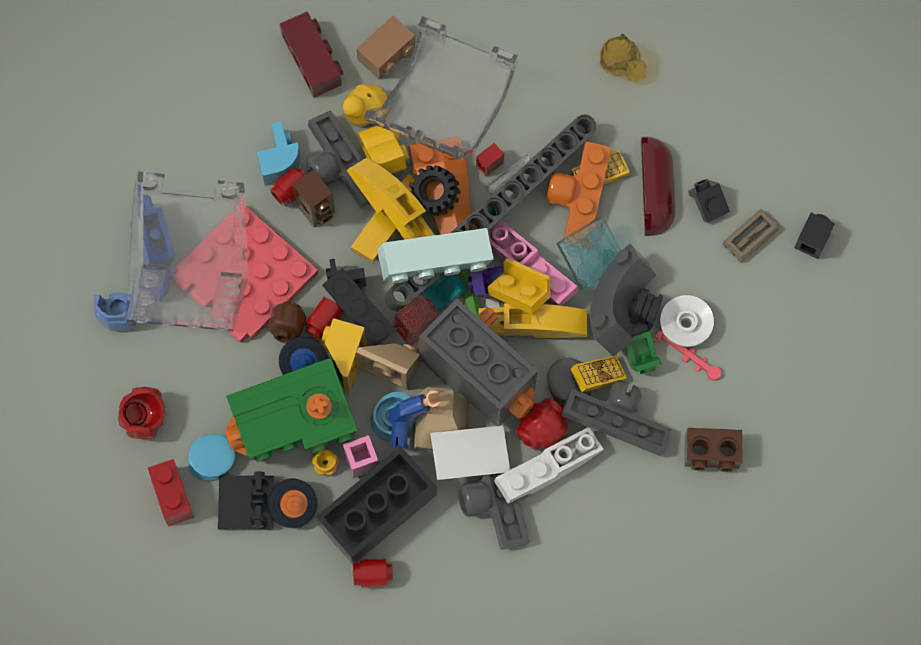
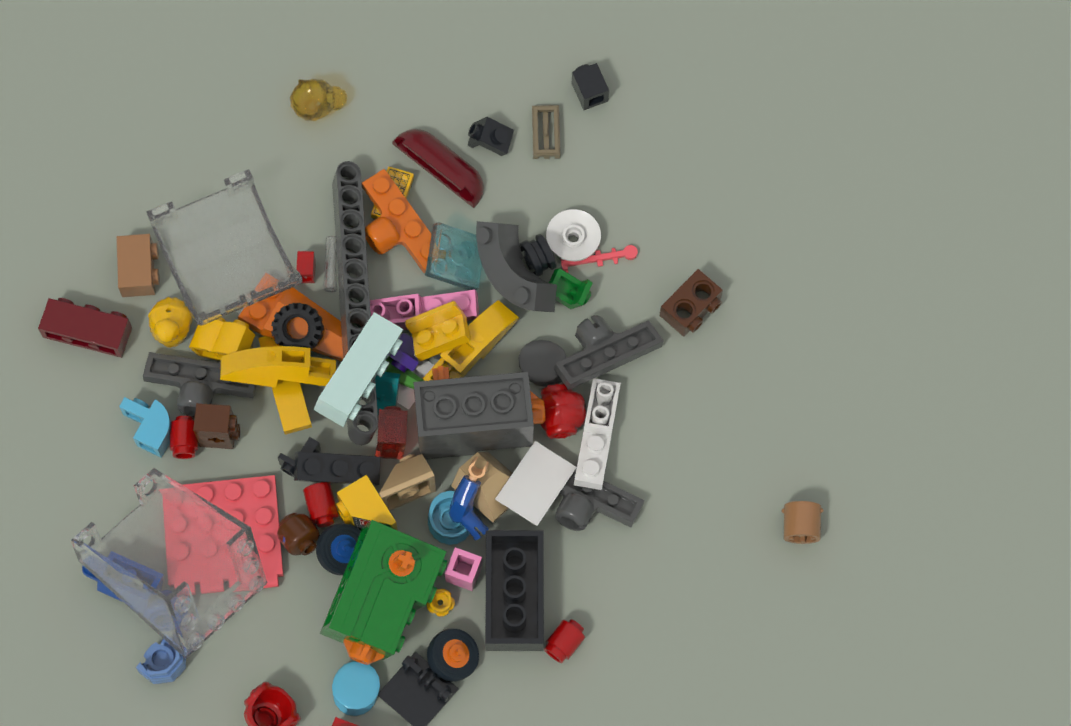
camera: 50 degrees left, 0 degrees up
(598, 373) = (557, 335): yellow tile -> none

